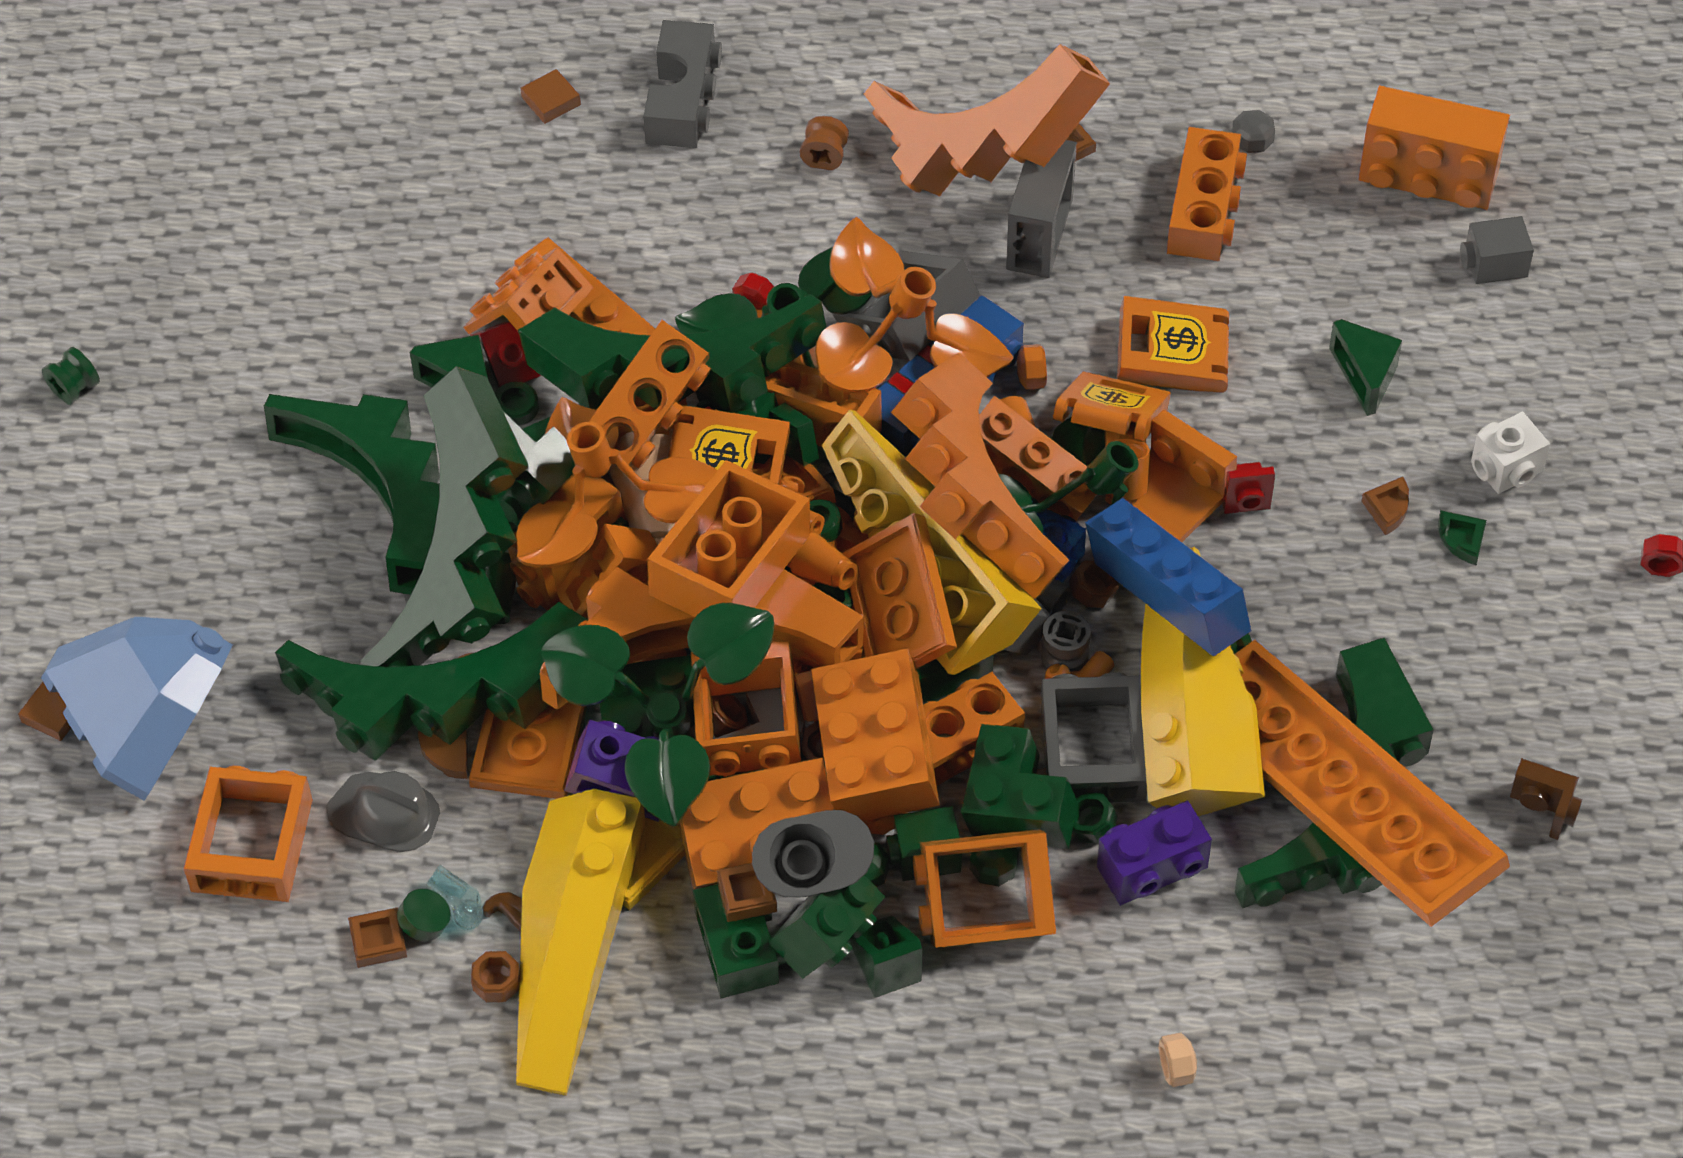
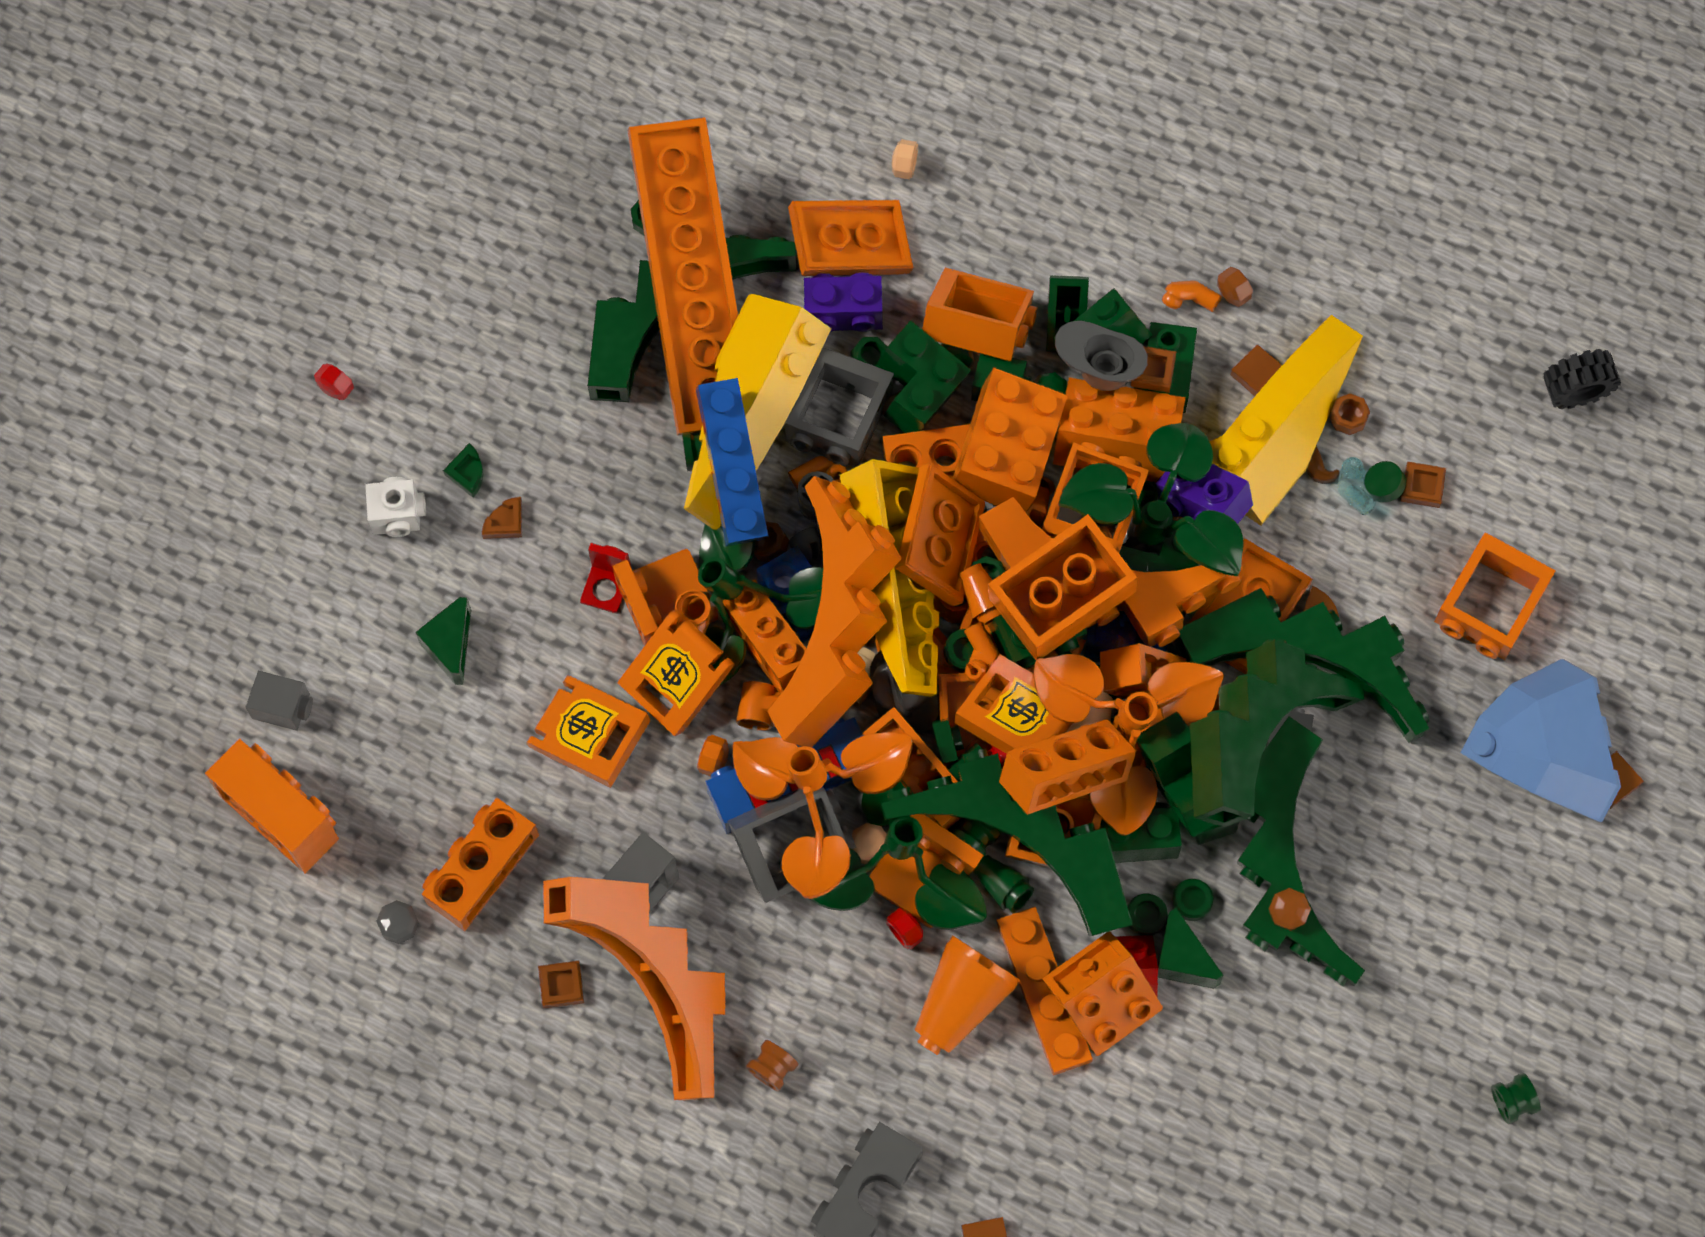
camera: 155 degrees left, 15 degrees up
(220, 1106) = (1581, 379): none -> black tyre
(362, 415) = (1289, 909): none -> dark orange tile
(384, 810) = (1384, 587): dark grey piece -> none
(627, 987) = (1255, 369): none -> dark orange tile
(664, 260) = (961, 996): none -> orange cone
(697, 1067) = (1234, 286): none -> dark orange tile
(751, 1047) = (1190, 290): none -> orange arm
(1188, 929) = (850, 237): none -> orange tile
(1547, 789) = (539, 235): reddish brown bracket -> none

